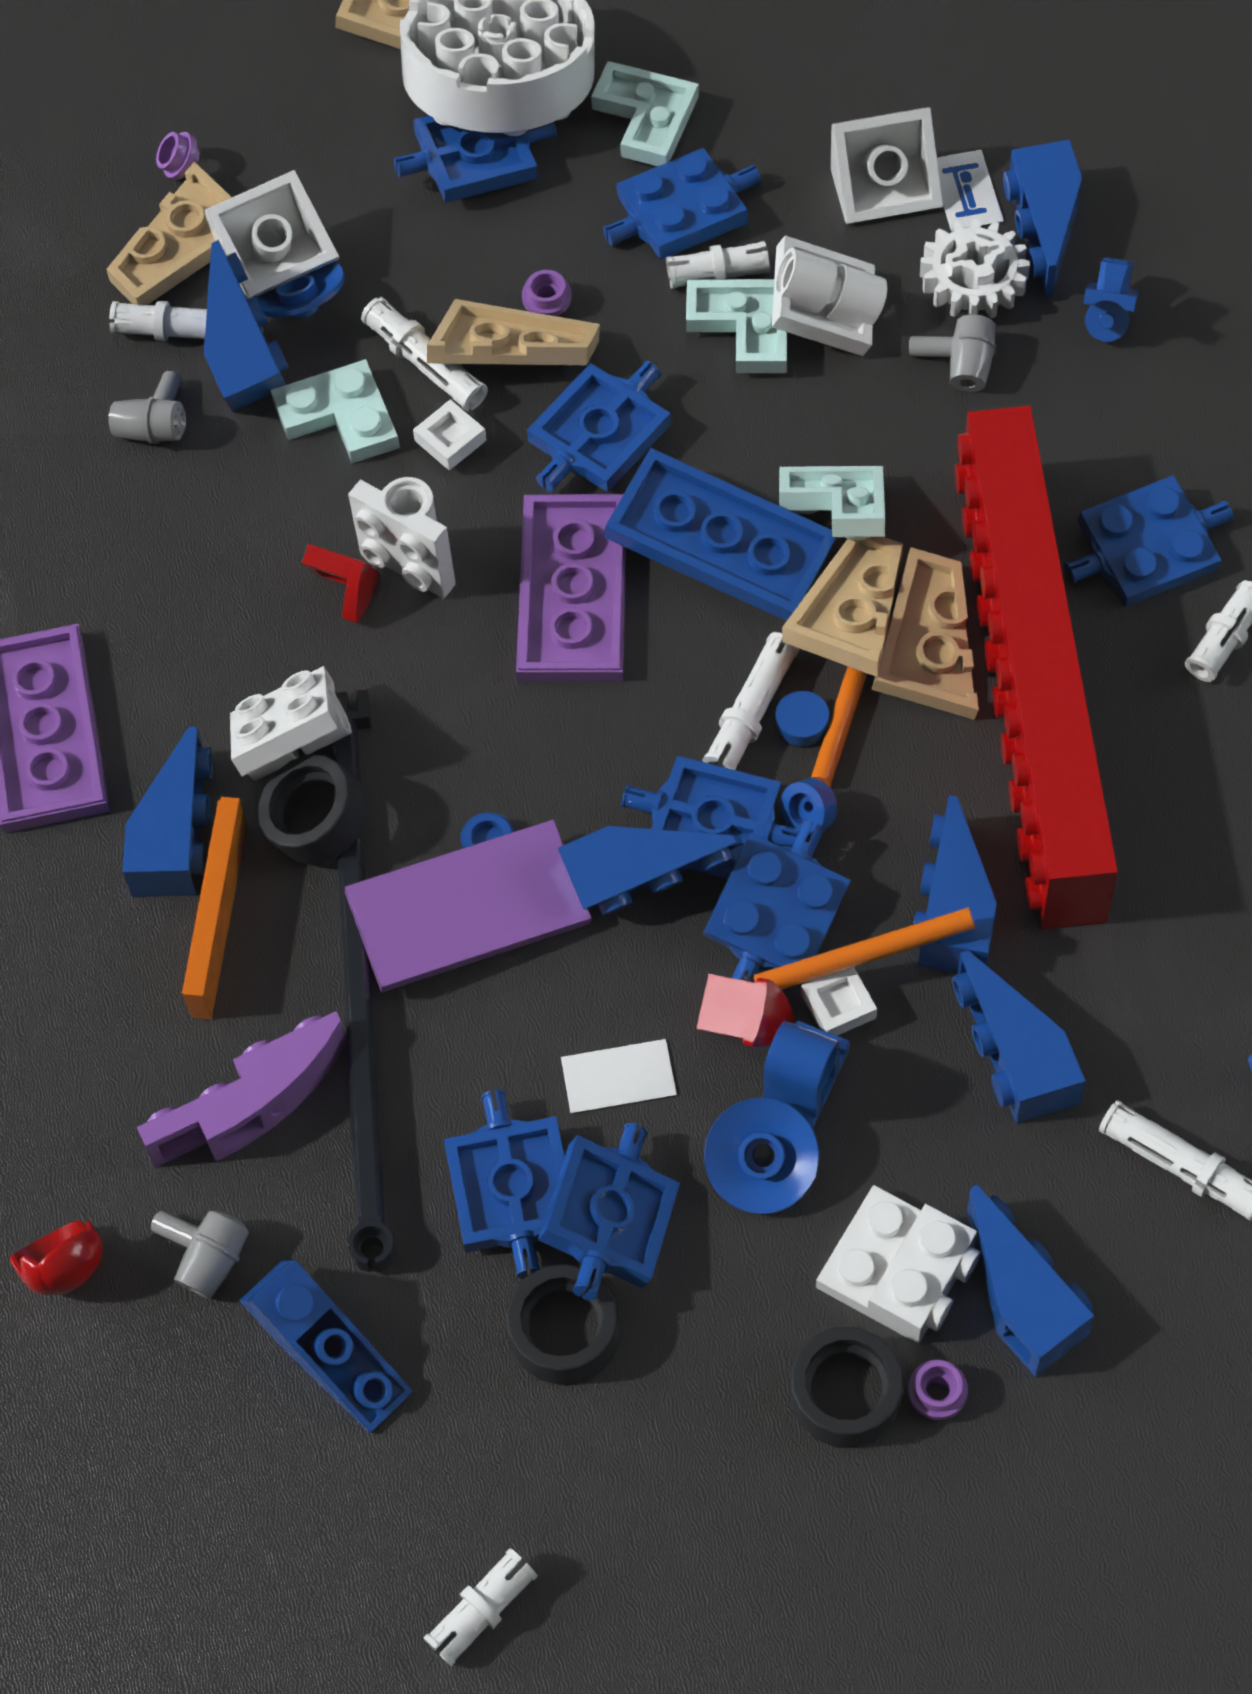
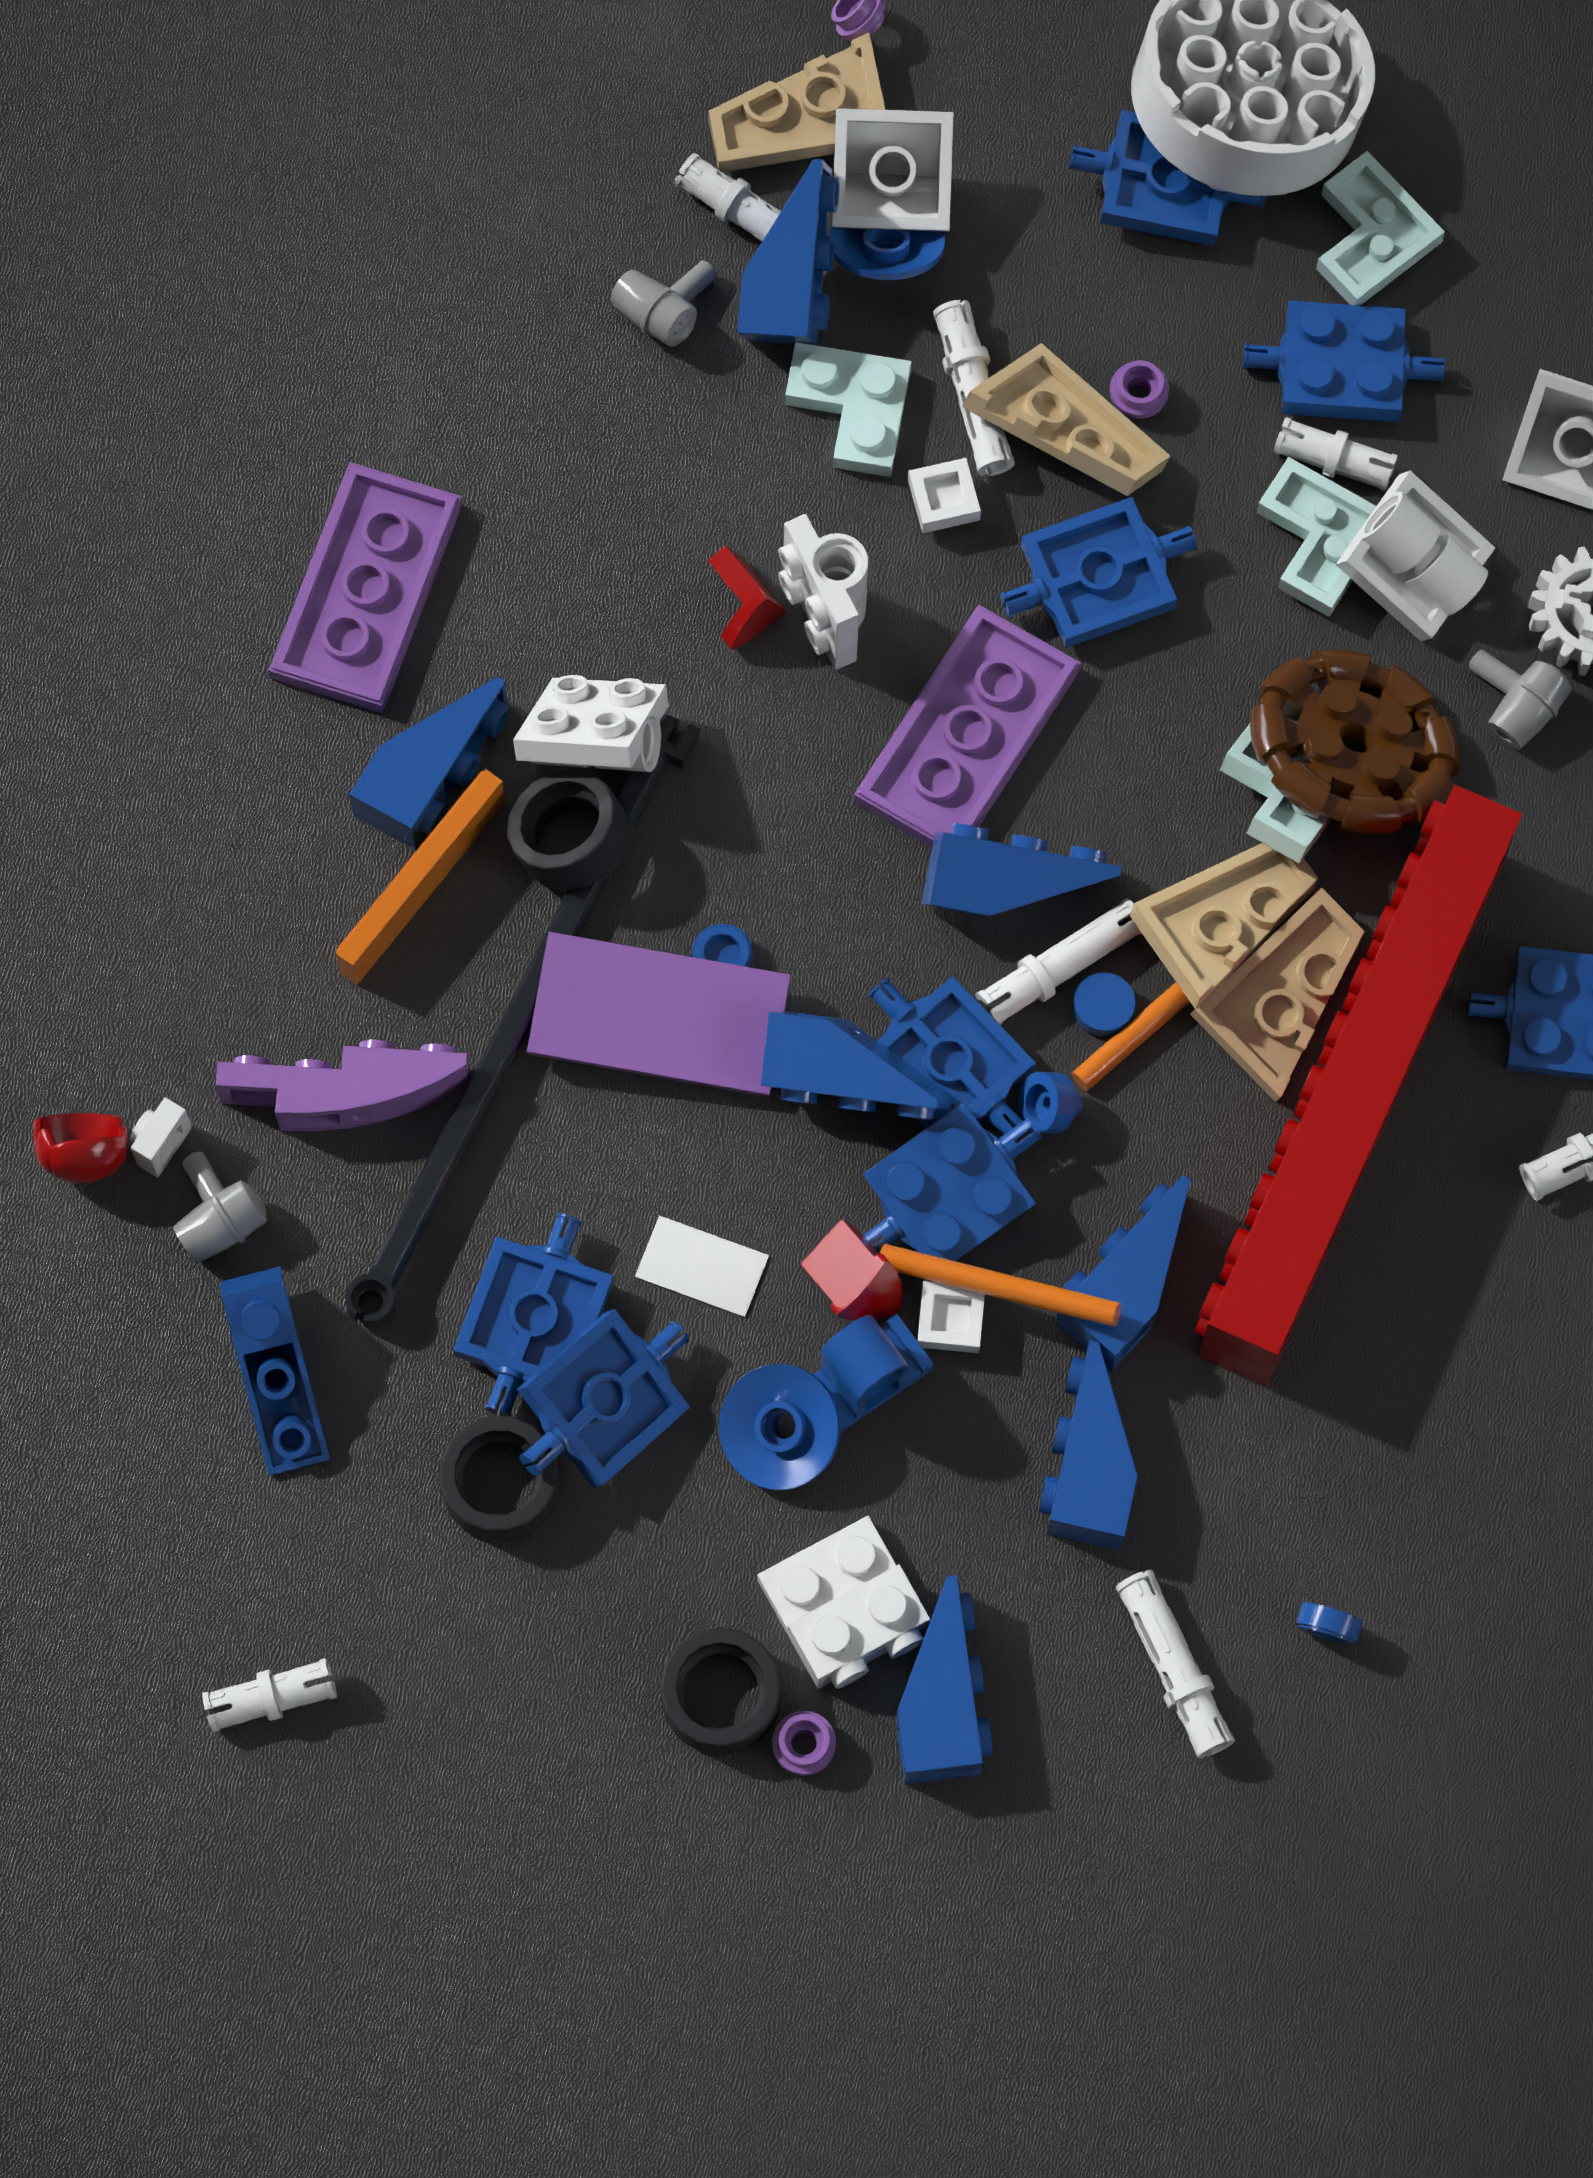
camera: 25 degrees right, 10 degrees up
(120, 1215) = (159, 1136): none -> white plate
(656, 670) = (994, 877): none -> blue slope
(720, 535) = (1142, 763): blue plate -> none
(899, 449) = (1345, 782): none -> reddish brown plate

